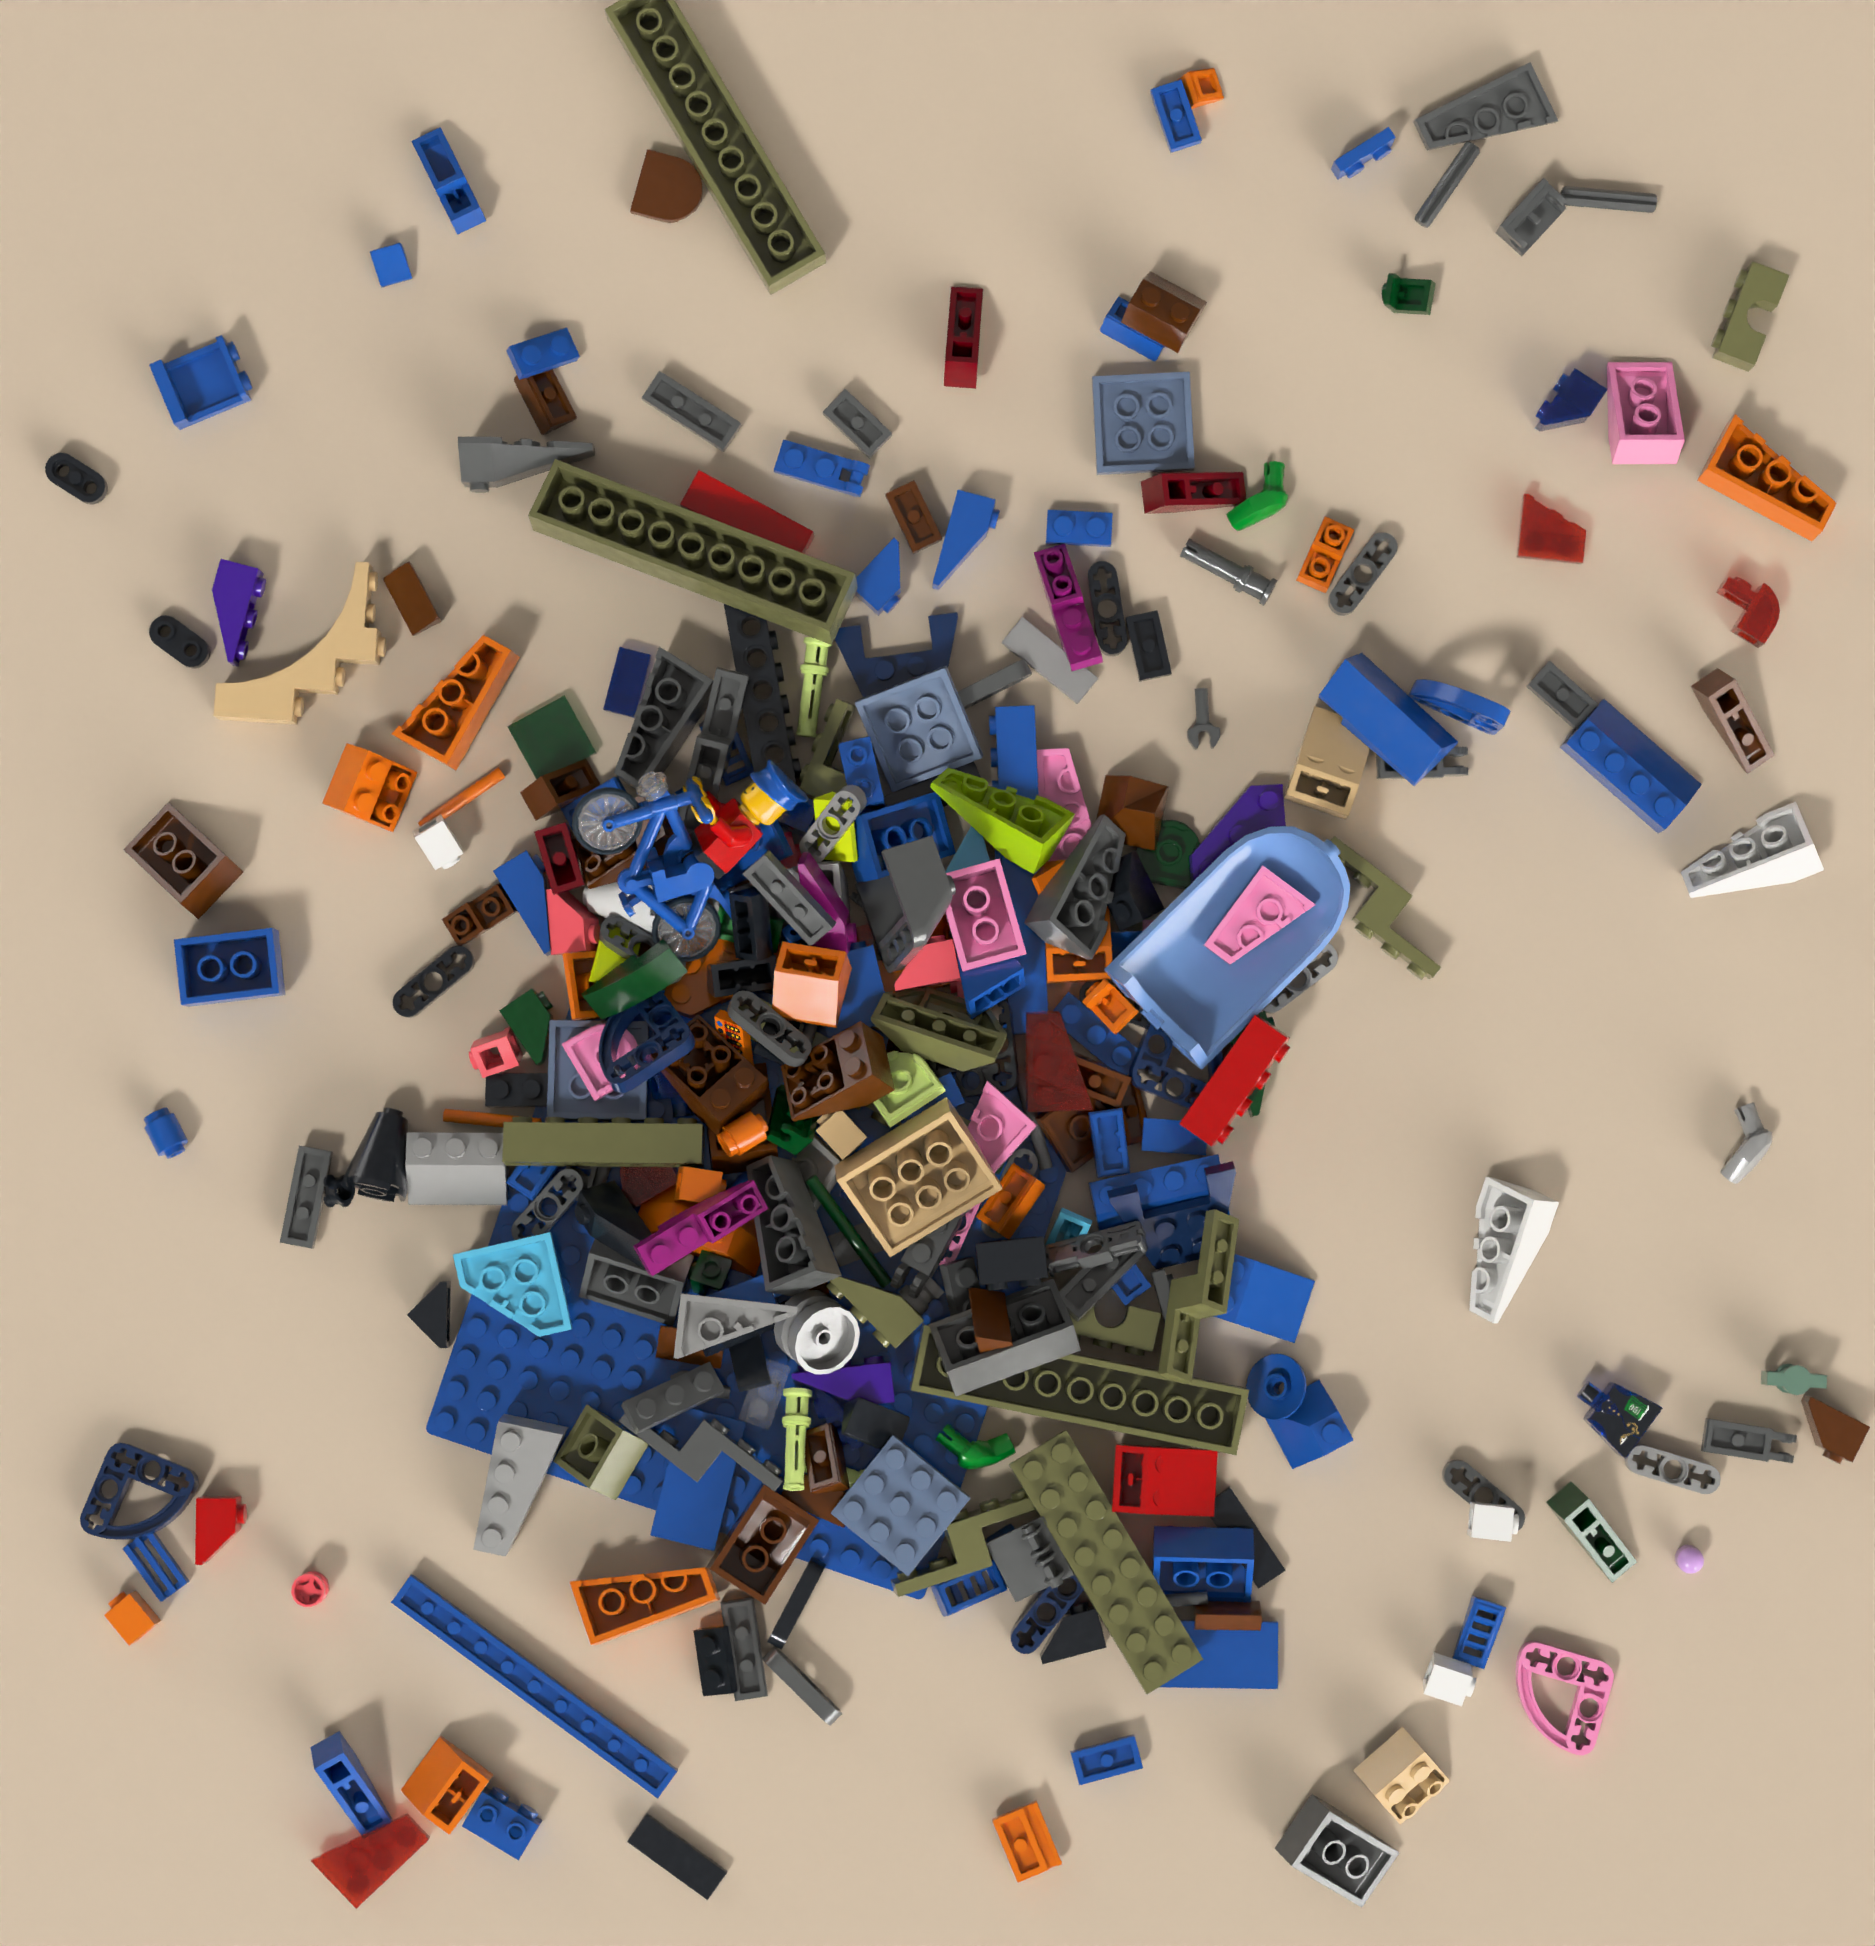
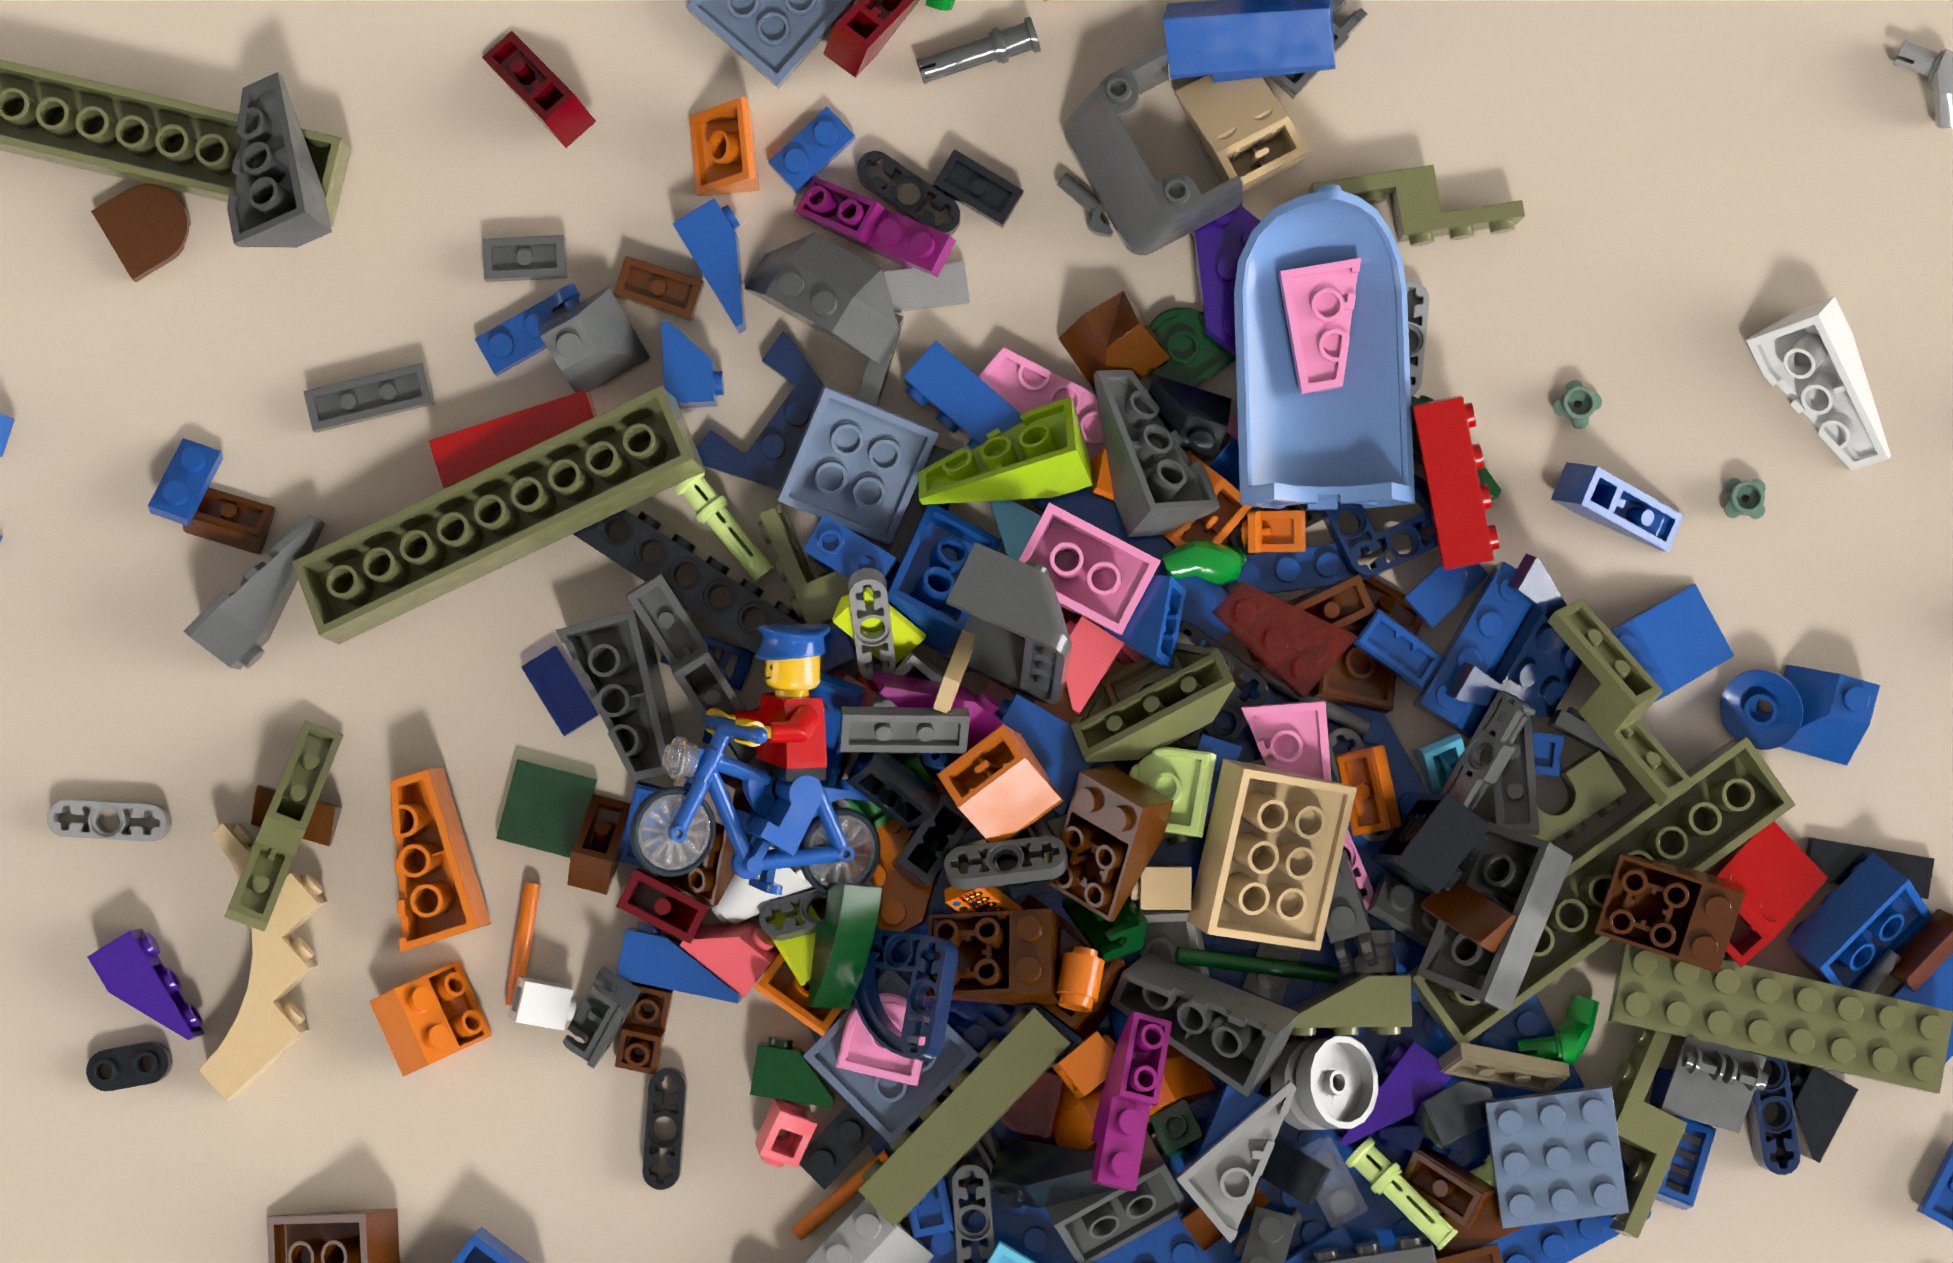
camera: 45 degrees left, 0 degrees up
(286, 484) = (80, 807): none -> light grey beam
(401, 598) = (284, 826): none -> olive bracket
(463, 883) = (601, 1016): none -> dark grey hinge
(763, 243) = (276, 182): none -> dark grey wedge
(845, 509) = (593, 341): none -> dark grey slope
(850, 896) = (955, 672): none -> tan tile
(923, 1427) = (1503, 1067): none -> dark tan tile
(1004, 618) = (829, 293): none -> dark grey wedge
(1030, 478) = (724, 149): none -> orange slope
(1053, 981) = (1206, 560): none -> green arm
(1103, 1436) = (1671, 911): none -> reddish brown slope
(1222, 754) = (1140, 209): none -> dark grey windscreen
(1316, 1192) = (1616, 505): none -> slope
(1361, 1106) = (1576, 392): none -> sand green plate
(1383, 1262) = (1756, 497): none -> sand green plate

